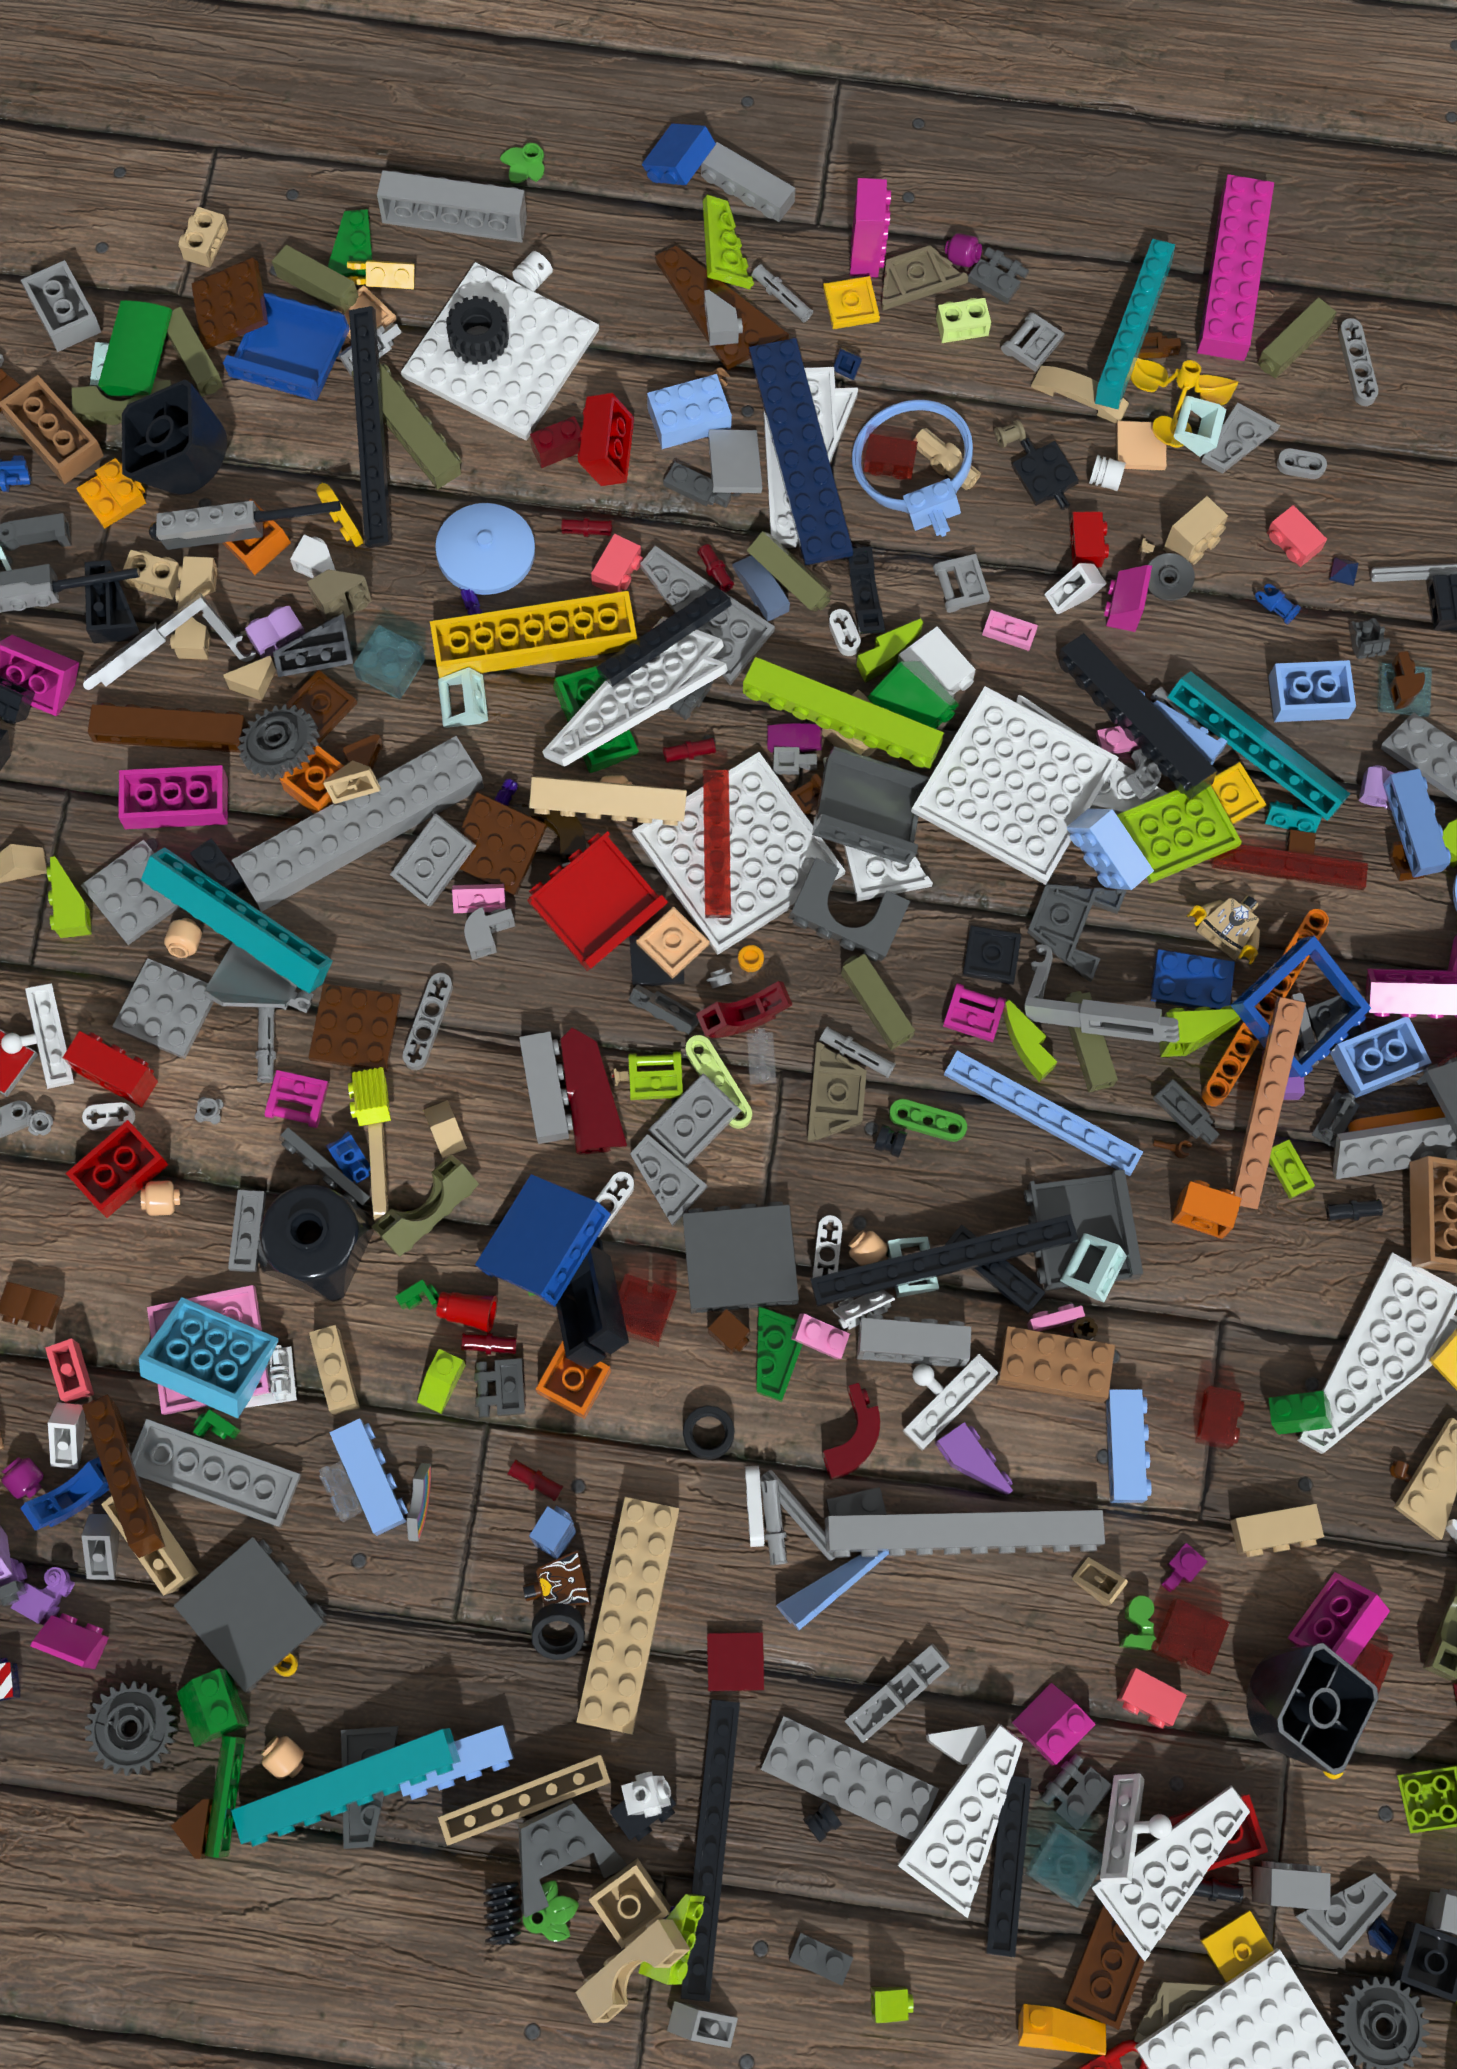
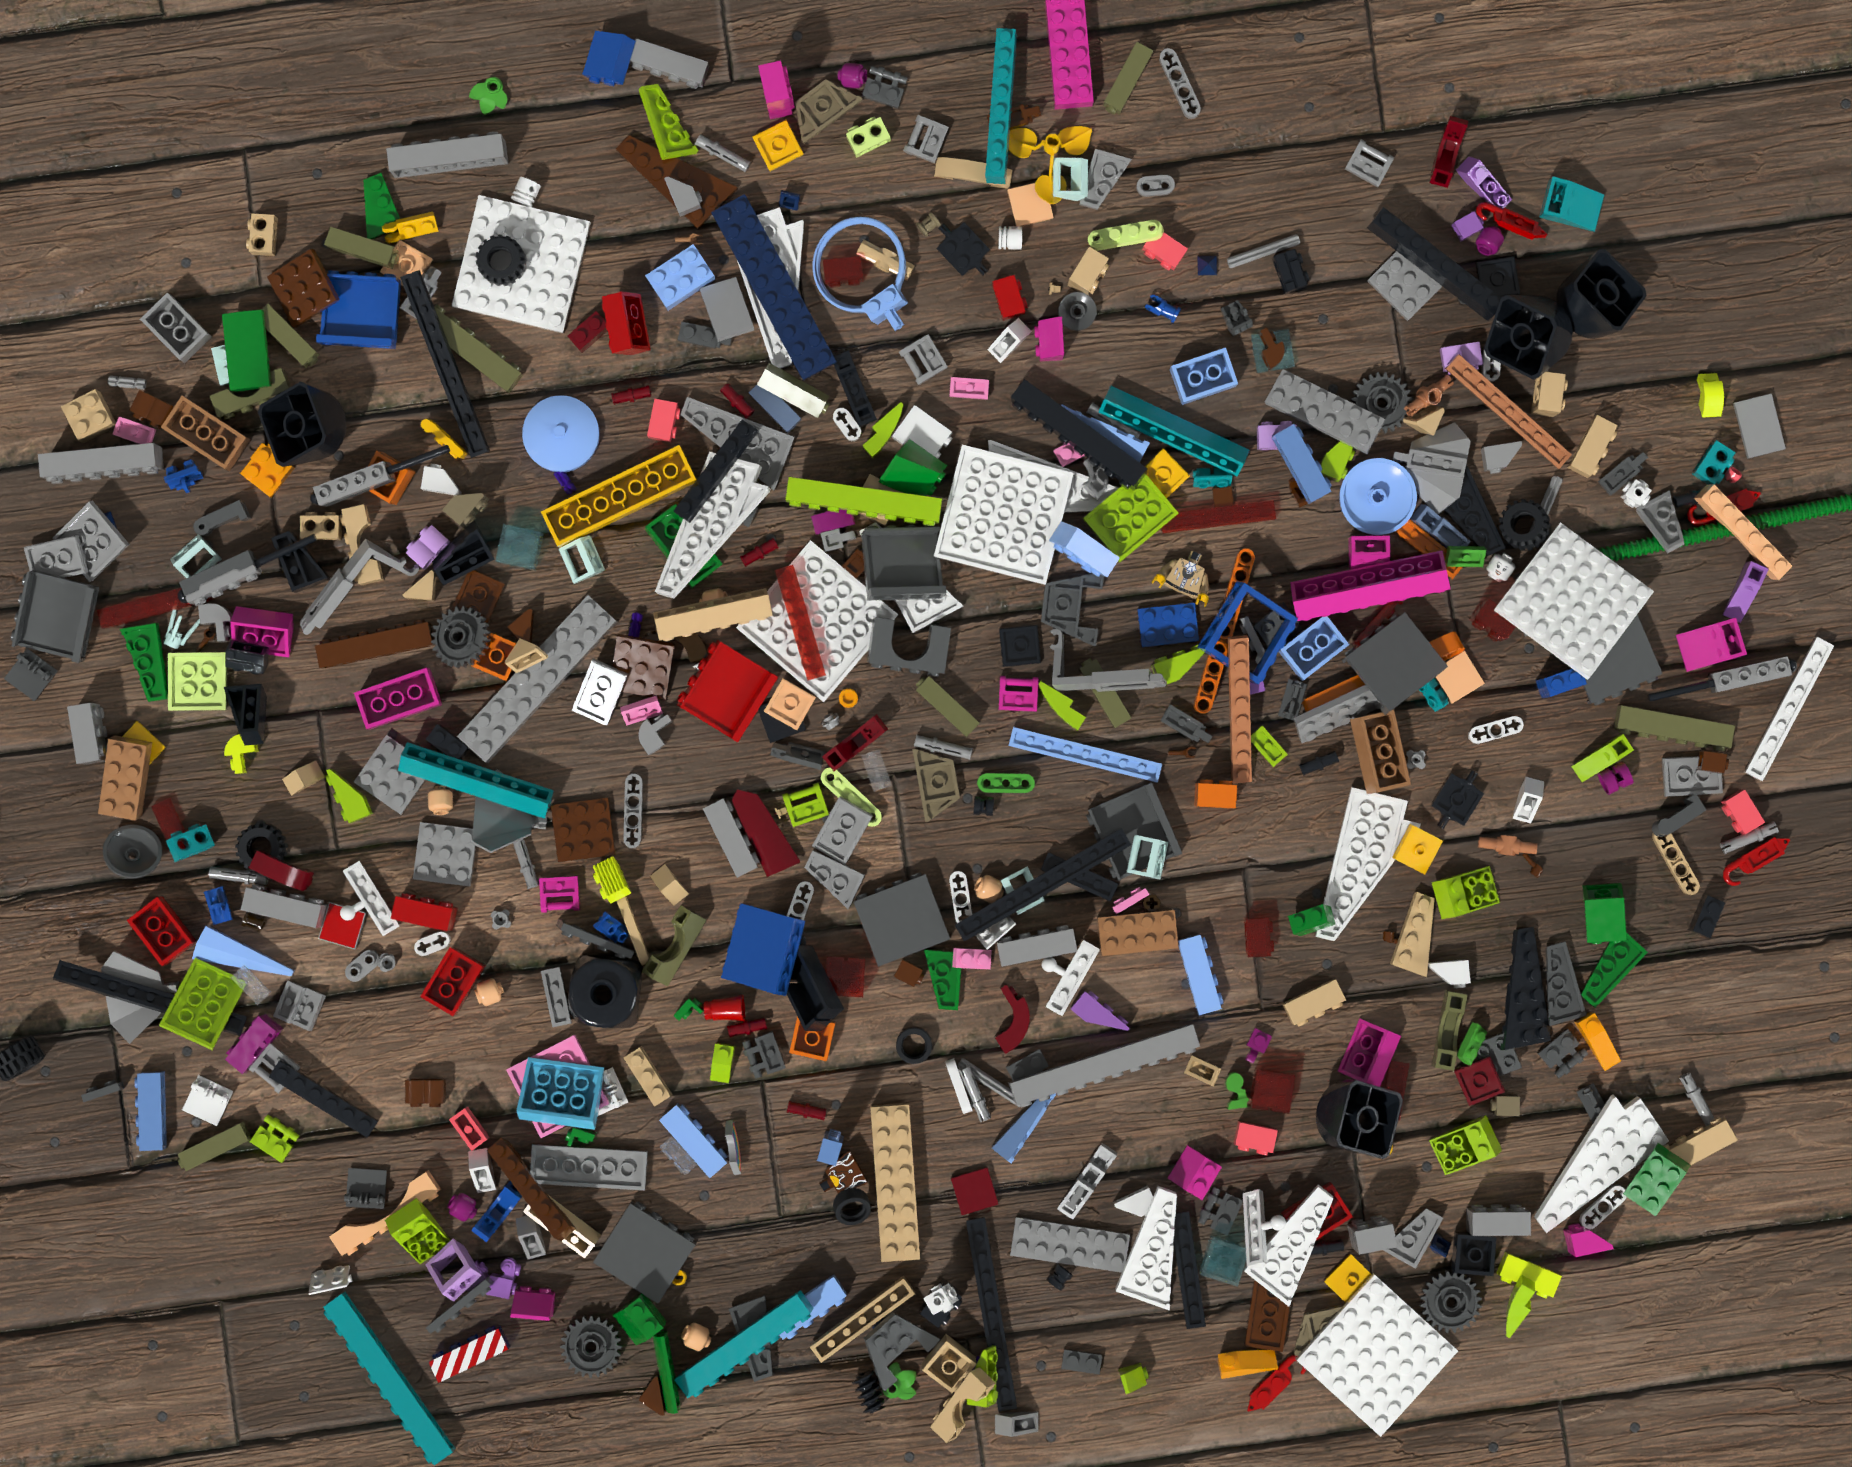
camera: 15 degrees left, 15 degrees up
(1258, 504) = (1125, 235): none -> yellowish green plate

